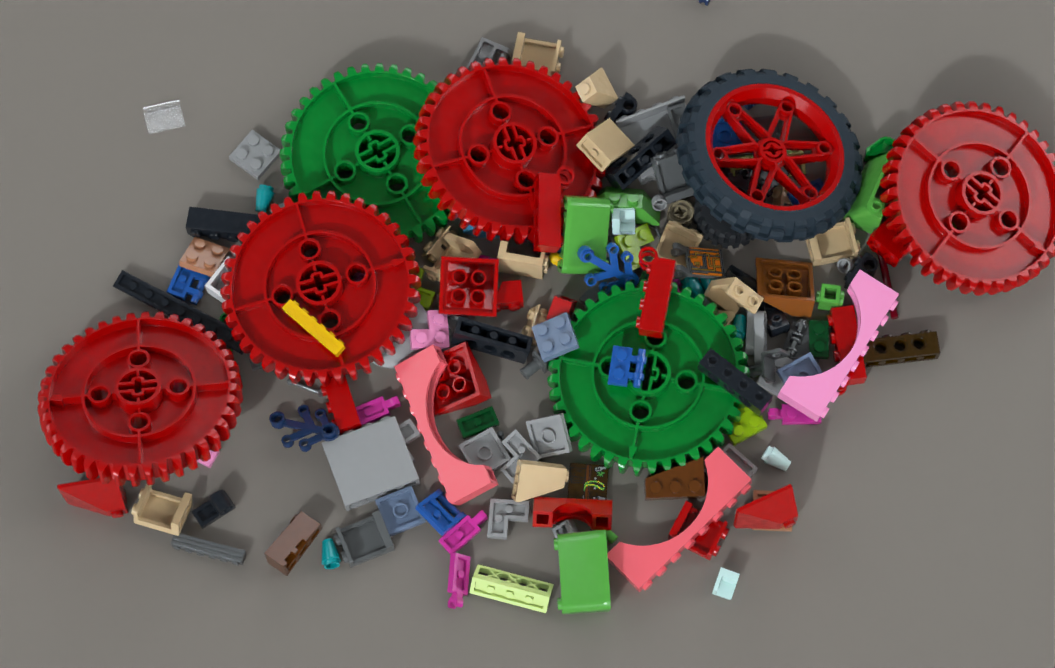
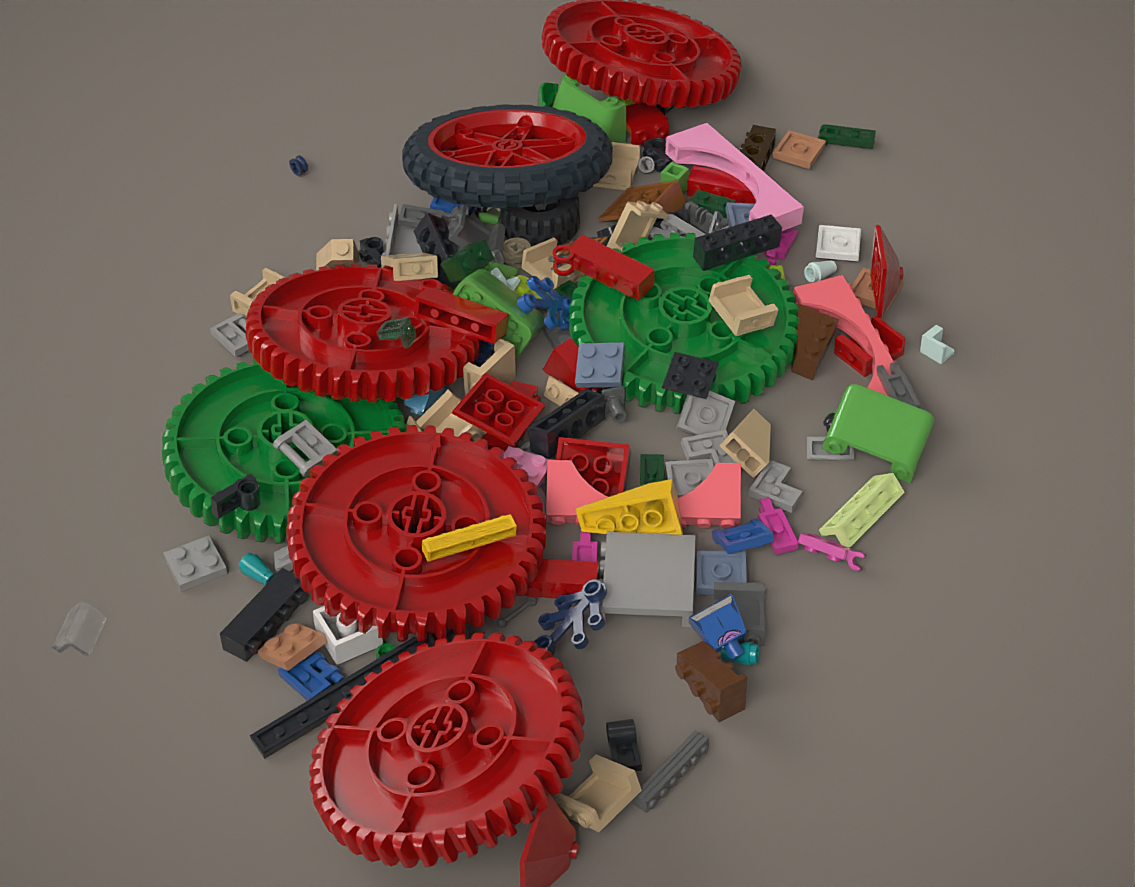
camera: 65 degrees left, 25 degrees down
(285, 149) = (241, 494): none -> black plate
(331, 530) = (721, 626): none -> blue torso
(366, 177) = (309, 441): none -> light grey plate
(421, 430) = (639, 510): none -> yellow wedge
(494, 179) = (397, 329): none -> clear green bracket
(566, 408) = (690, 375): none -> black hinge
(587, 481) = (776, 410): dark brown tile -> none
(594, 512) = (812, 410): red arch -> none
(620, 366) = (669, 321): blue plate -> none
(627, 193) = (467, 260): none -> dark green piece
(636, 570) = (897, 384): none -> dark grey hinge
(664, 415) = (741, 306): none -> tan panel
(820, 460) = (838, 243): none -> white plate
(933, 381) = (799, 149): none -> nougat plate
(973, 415) = (847, 136): none -> dark green plate

